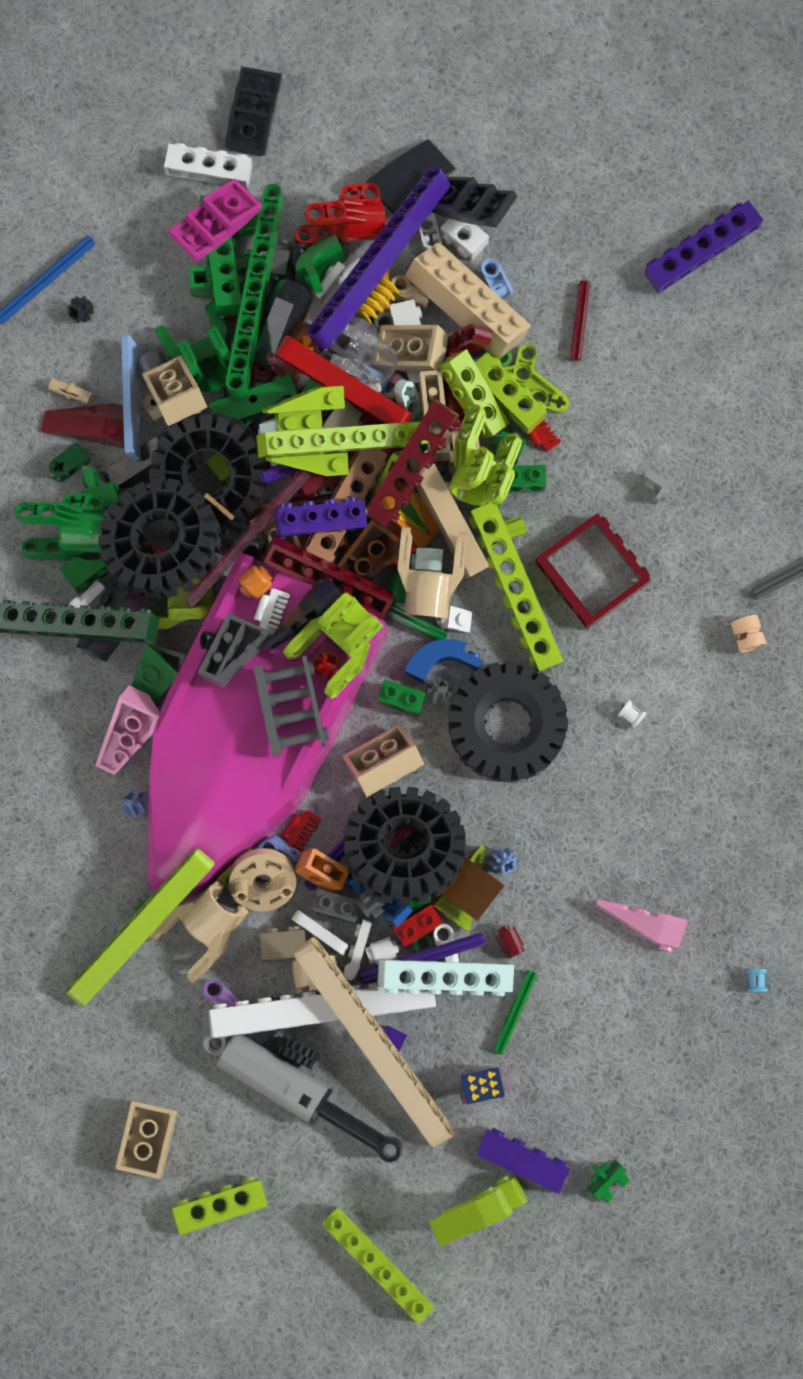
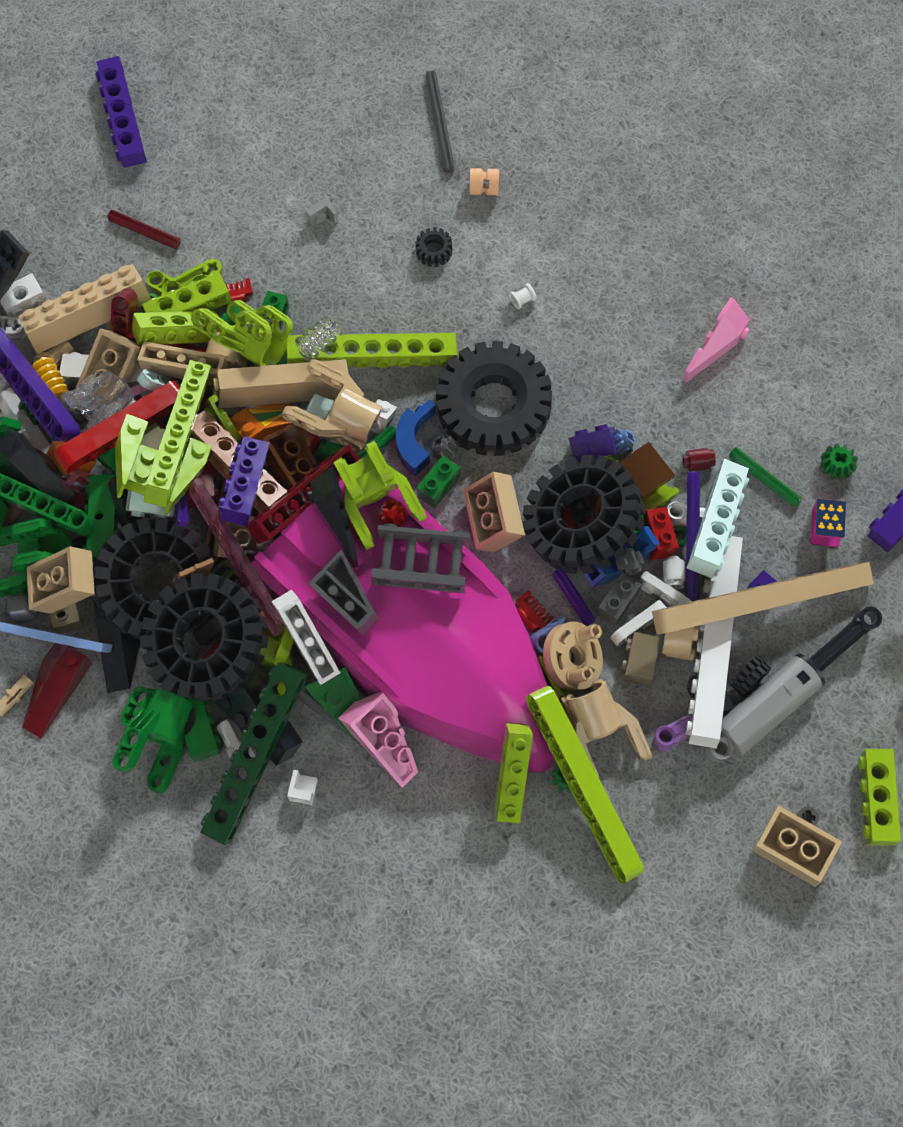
camera: 65 degrees left, 10 degrees down
(65, 677) = (302, 788): none -> white panel
(70, 460) = (84, 717): dark green piece -> none
(108, 491) = (113, 701): green brick -> none
(128, 859) = (513, 773): none -> lime brick
(134, 804) = (455, 757): medium blue gear -> none
(184, 628) = (305, 637): none -> white brick
(186, 1148) = (812, 812): none -> dark grey bush
(207, 639) = (322, 615): black hinge -> none
(218, 468) = (152, 575): lime brick -> none
(255, 582) = (285, 555): orange head -> none
(267, 607) = (315, 552): white piece -> none
(321, 870) = (582, 597): orange brick -> none
(377, 508) = (201, 332): dark red brick -> none
(490, 832) = (593, 443): none -> dark purple bracket
(496, 281) = (72, 280): light blue piece -> none
(498, 531) = (316, 336): none -> clear piece
(561, 1079) = (838, 461): none -> green gear
(565, 591) = (386, 315): dark red window -> none
(661, 596) = (433, 257): none -> black tyre
(761, 980) = (796, 271): medium azure bush -> none

